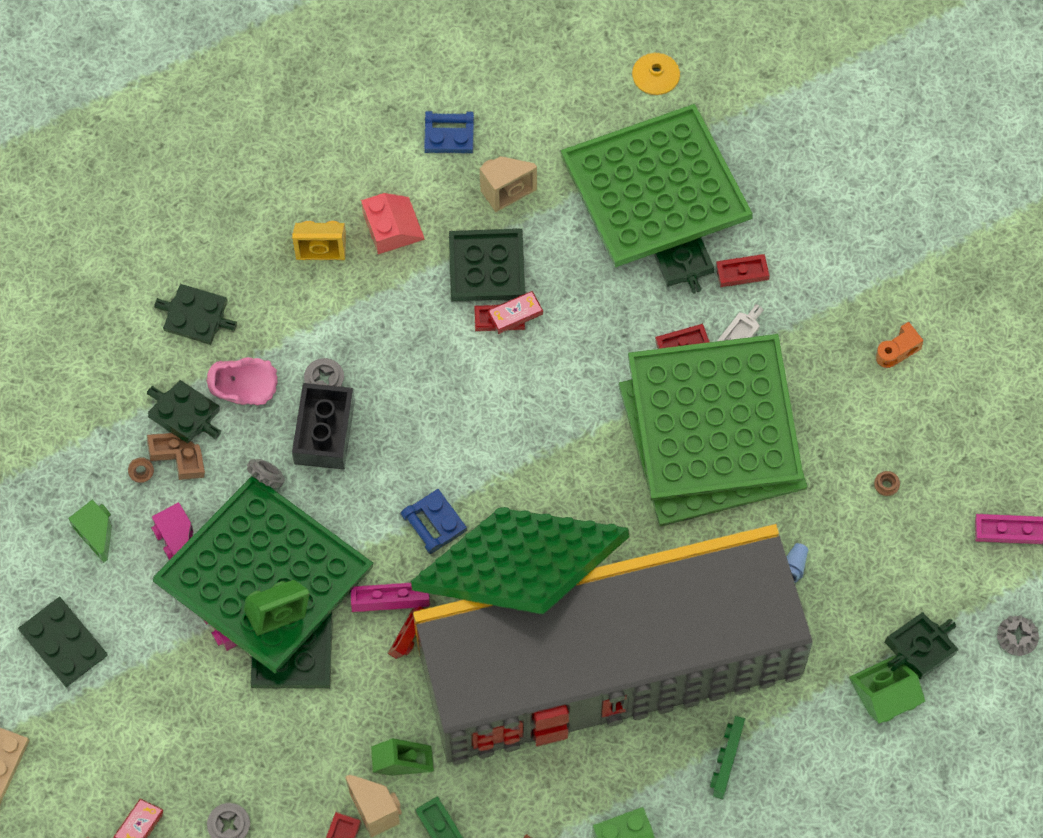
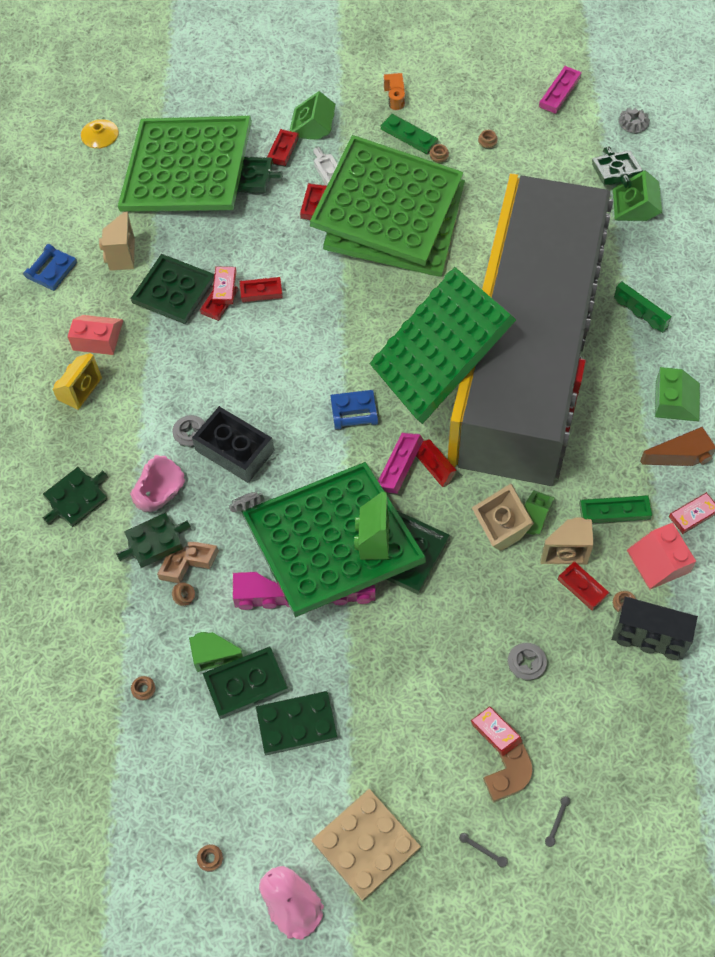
camera: 60 degrees left, 5 degrees down
(30, 481) = (141, 681): none -> medium nougat plate
(79, 574) = (245, 682): none -> dark green plate
(364, 723) = (503, 517): none -> tan slope
(533, 351) = (260, 289): none -> red plate
(802, 280) = (313, 117): none -> bright green slope
(835, 434) = (439, 153): none -> medium nougat plate
(845, 394) = (409, 133): none -> green plate

